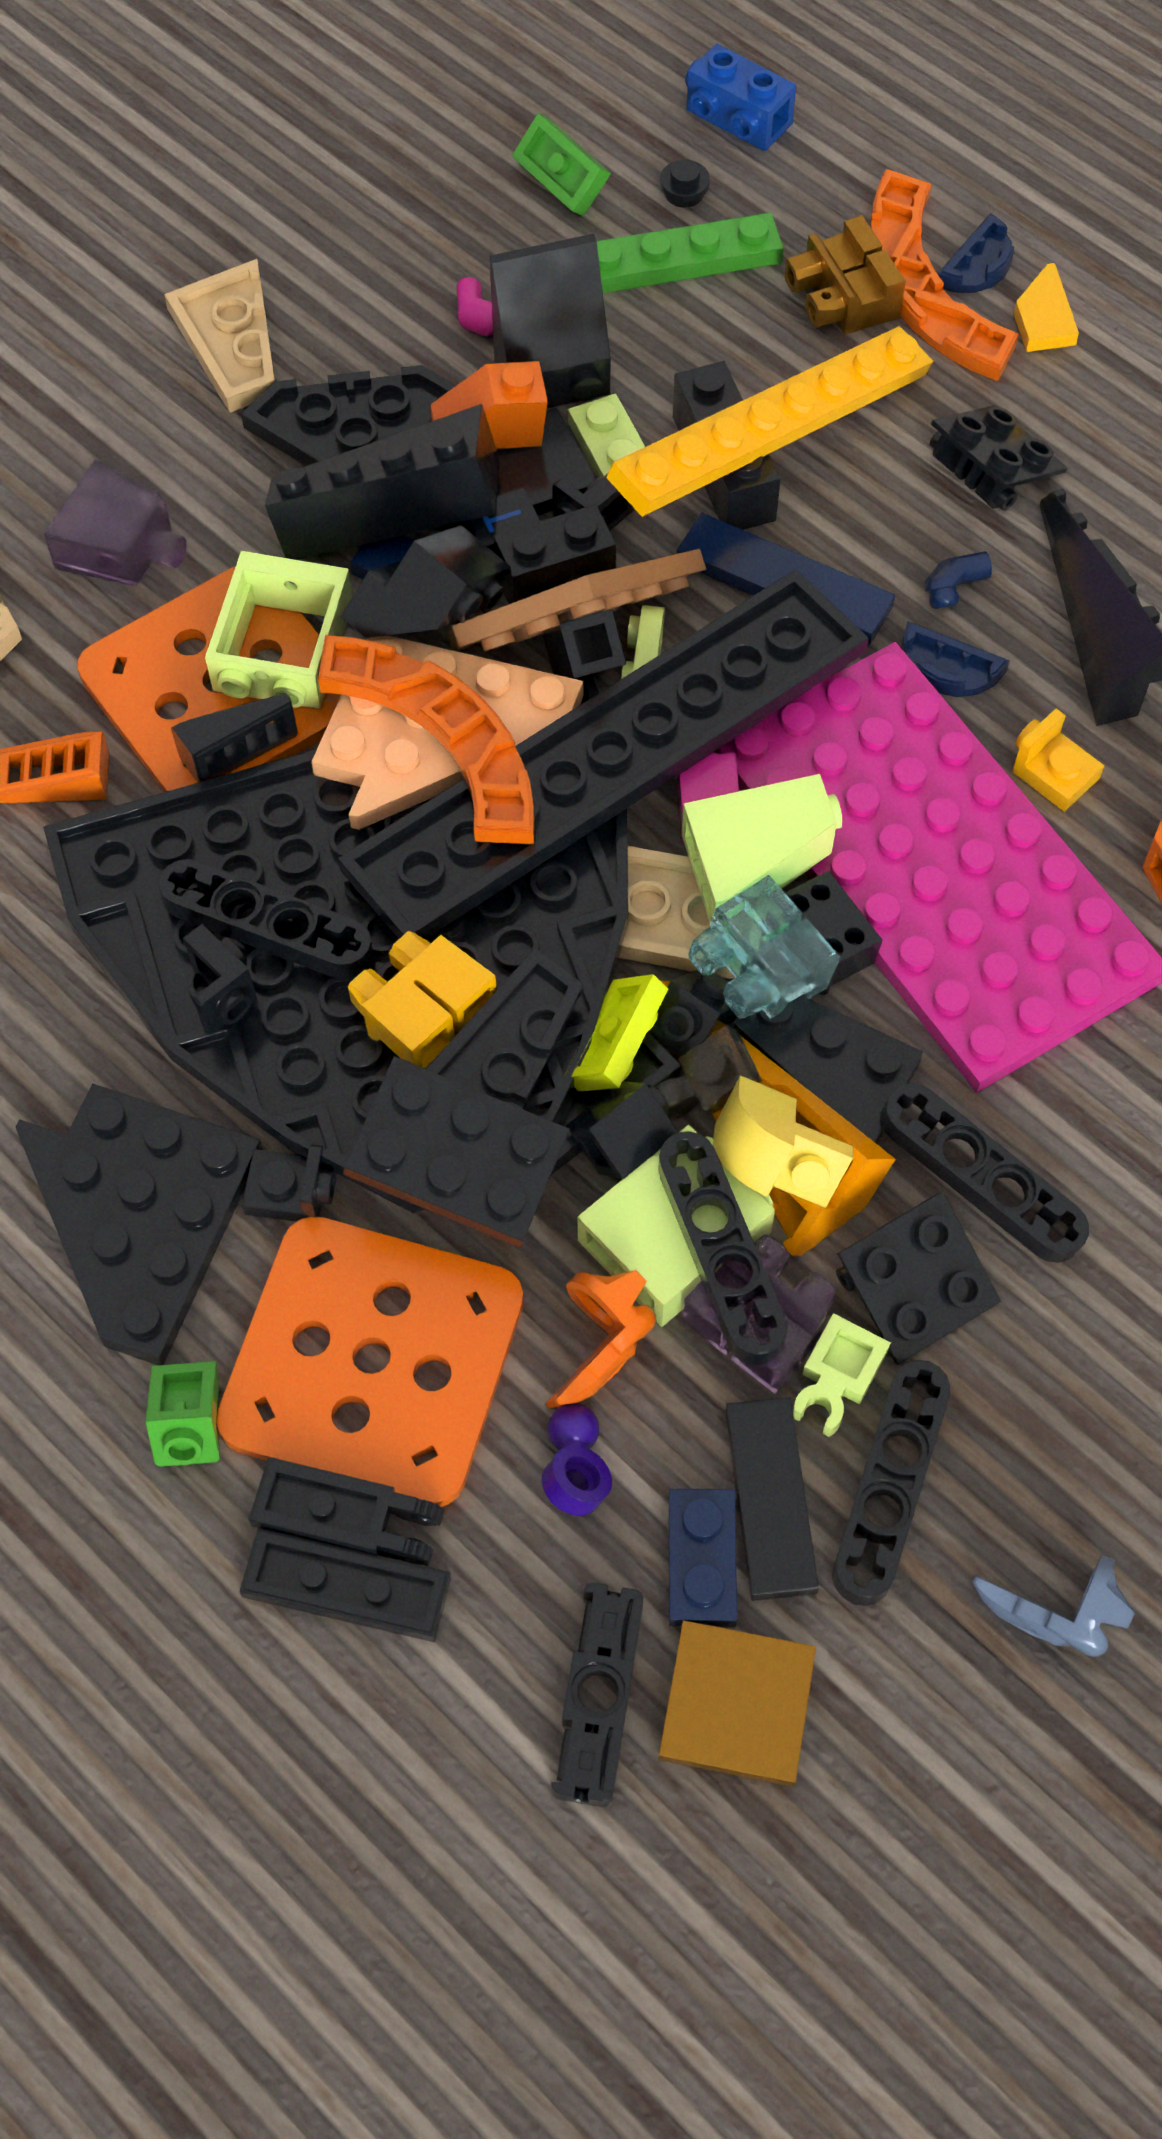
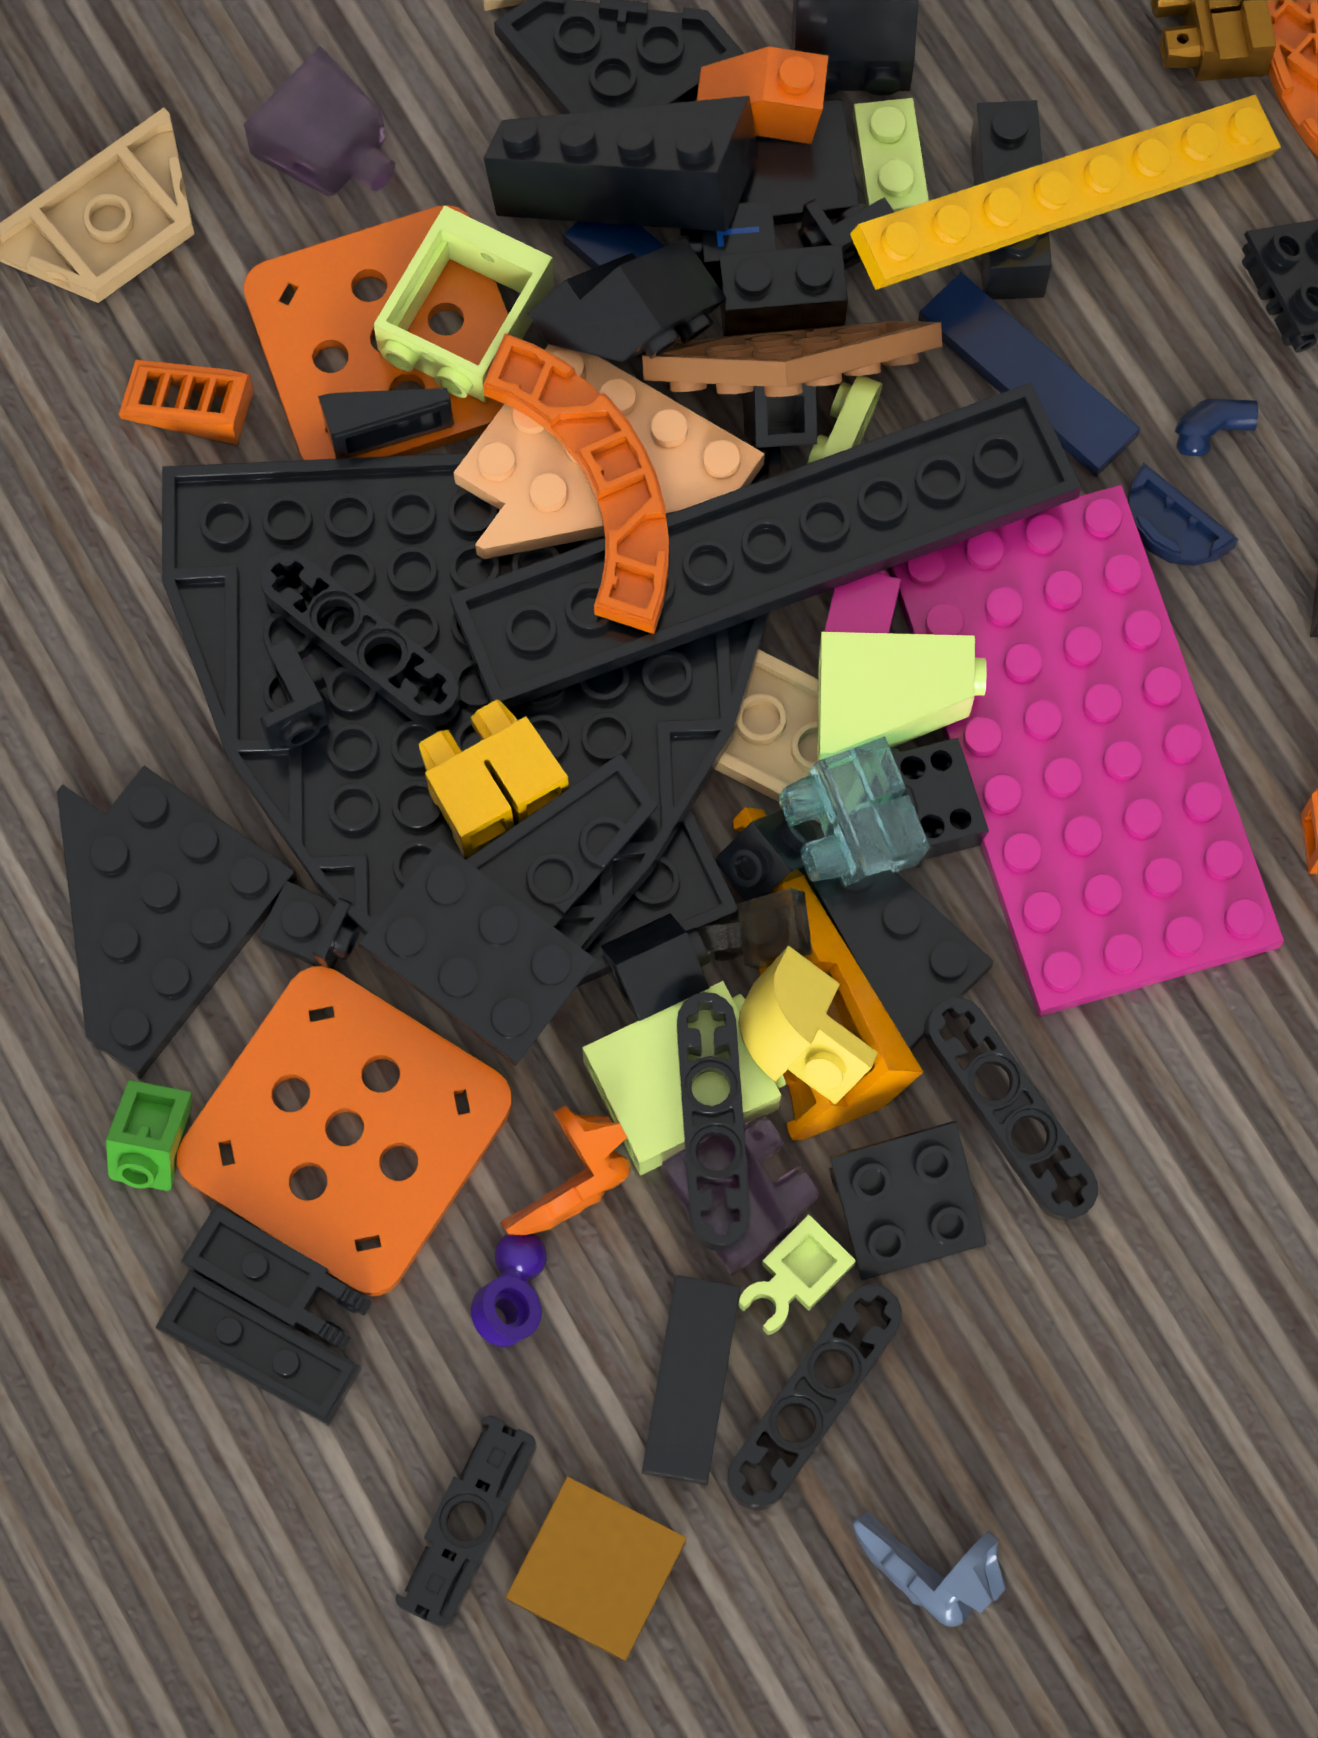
camera: 15 degrees right, 10 degrees up
(624, 1020) = (688, 855): neon yellow plate -> none
(702, 1557) = (606, 1418): dark blue plate -> none
(1054, 762) = (1246, 672): yellow bracket -> none

